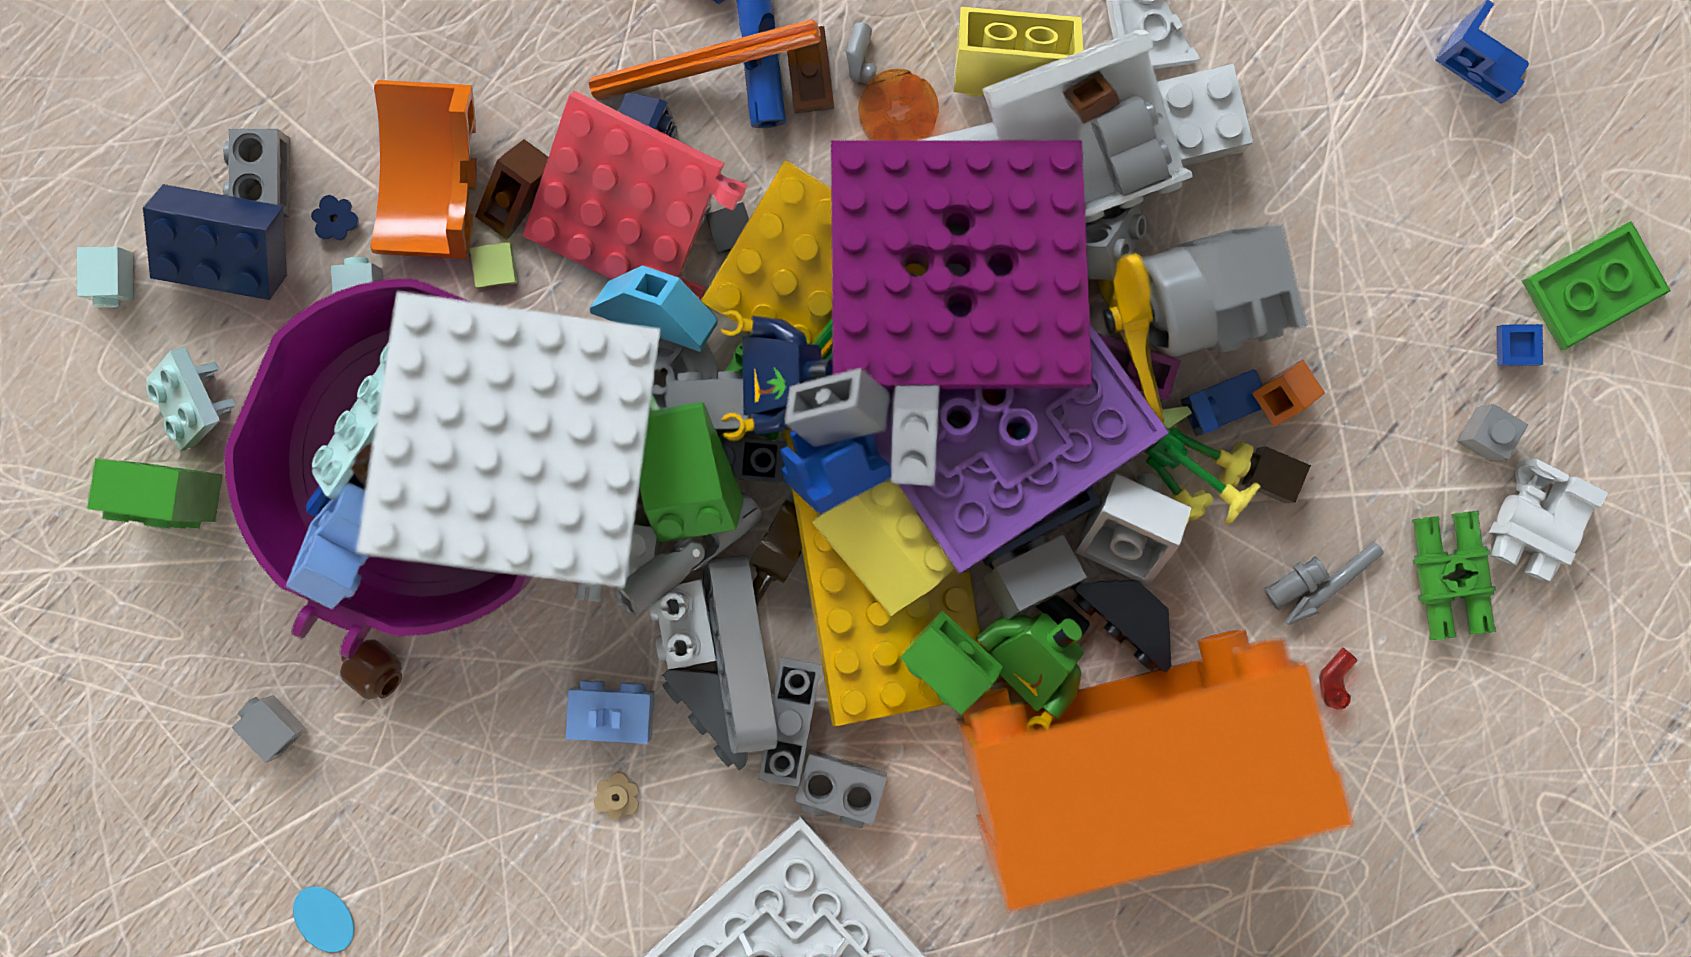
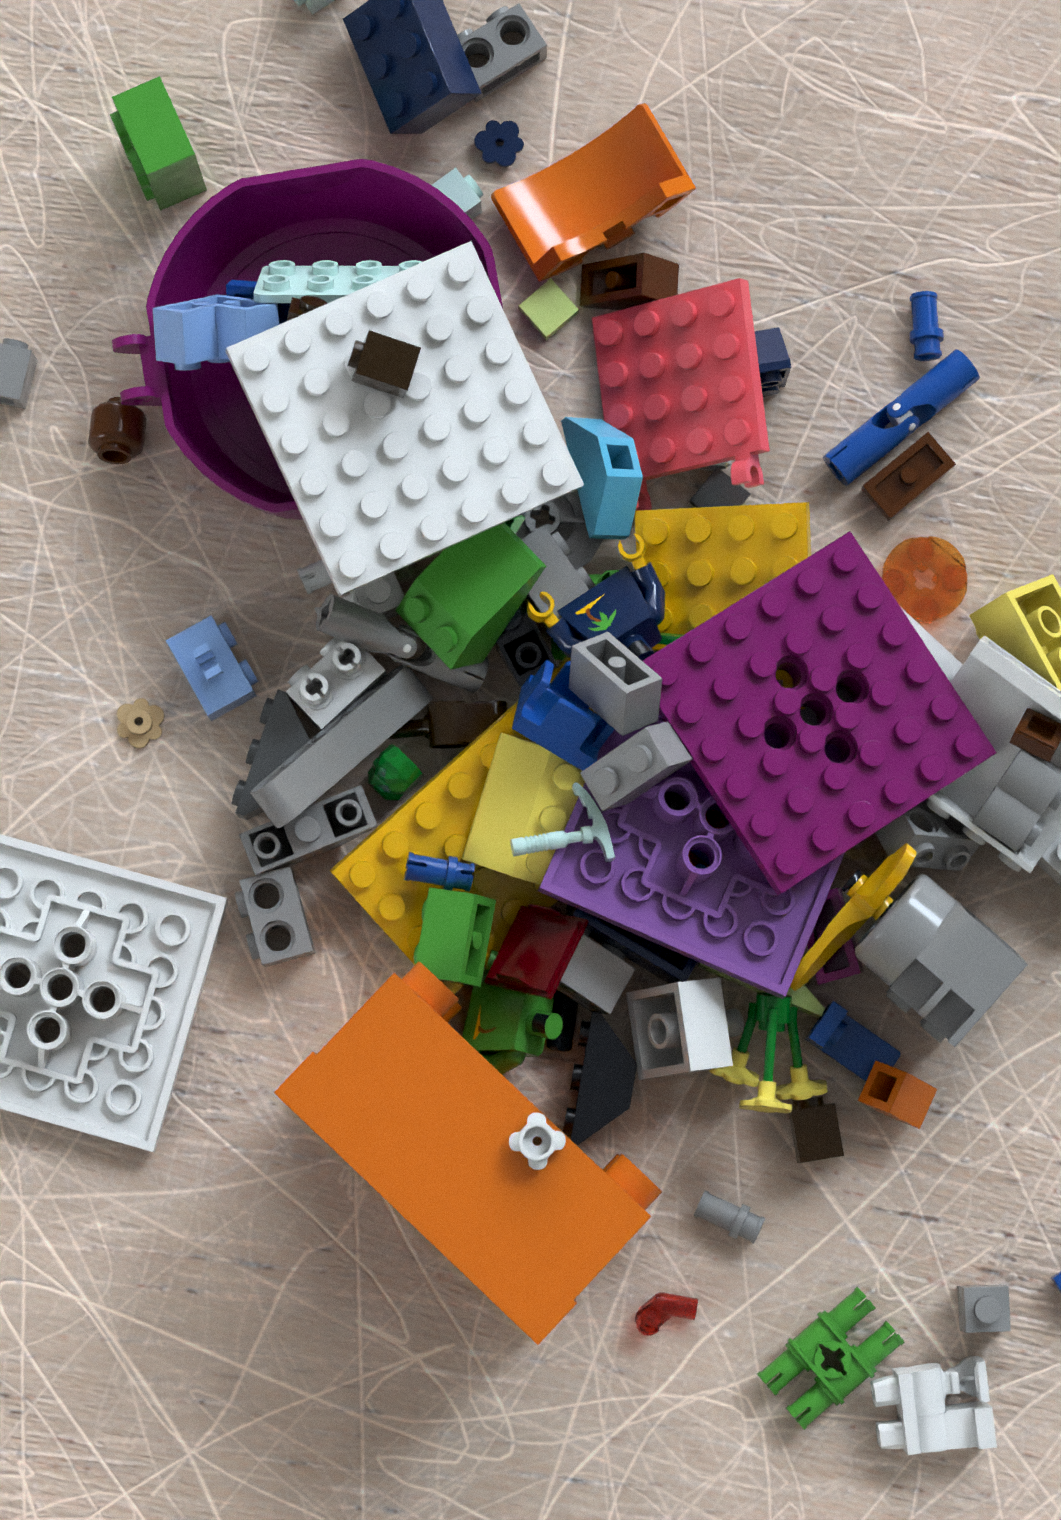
camera: 55 degrees right, 5 degrees down
(183, 399) = (254, 115): light aqua plate -> none
(454, 430) = (384, 363): none -> dark brown brick
(705, 59) = (854, 377): orange axle -> none
(786, 625) = (393, 774): none -> green rock
(856, 51) = (938, 520): light grey arm -> none
(893, 638) = (440, 872): none -> blue pin
(932, 531) = (560, 839): none -> light aqua piece
(1004, 605) = (536, 951): none -> dark red piece
(1199, 729) = (537, 1155): none -> white plate
(1308, 605) = (716, 1242): light grey piece -> none

